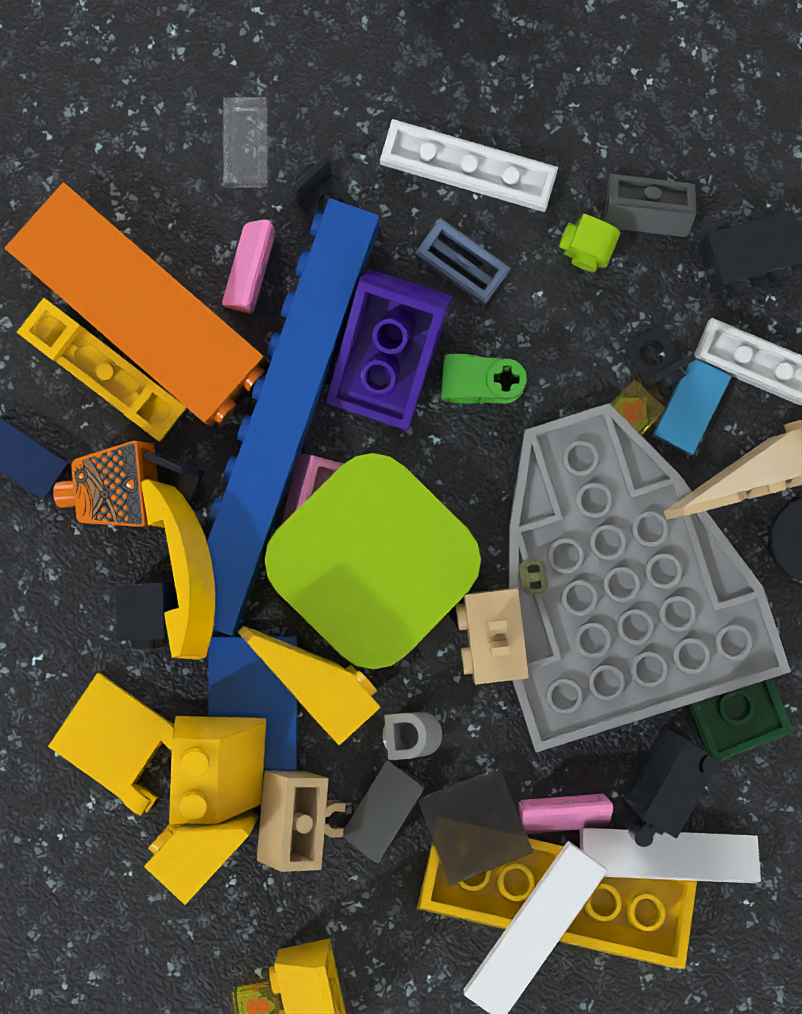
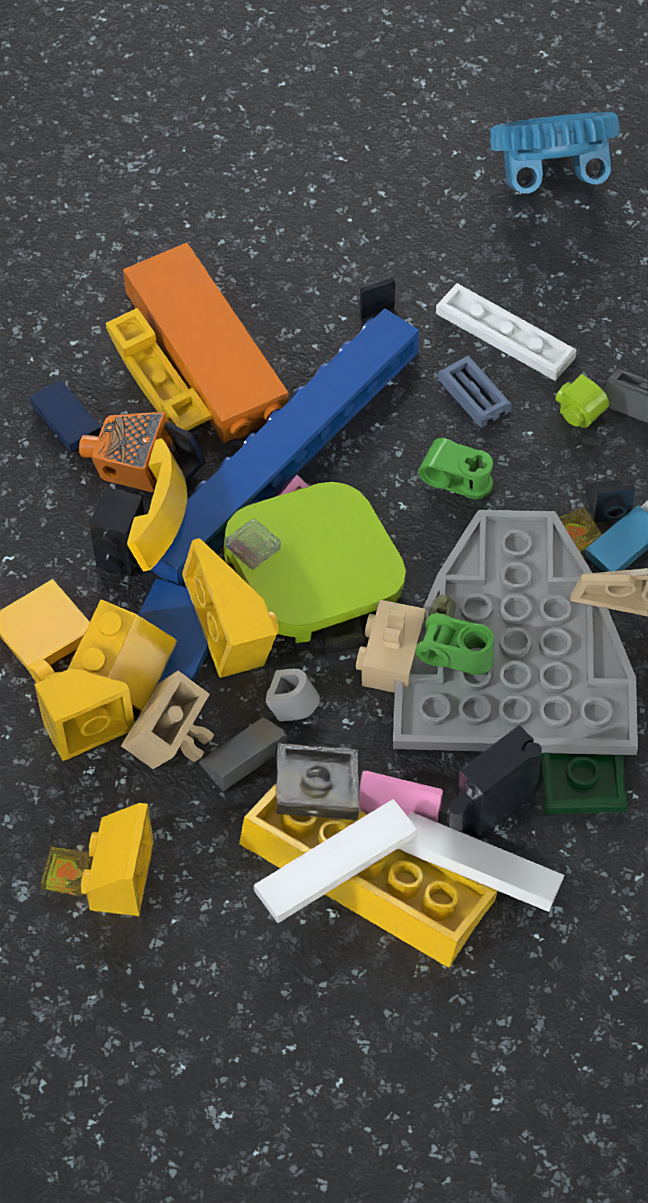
camera: 25 degrees right, 30 degrees down
(245, 142) = (336, 267): clear tile -> none
(249, 266) = (305, 345): bright pink slope -> none
(305, 583) = (253, 543): none -> clear tile
(388, 348) = (389, 424): dark purple slope -> none
(563, 625) = (453, 645): none -> bright green piece

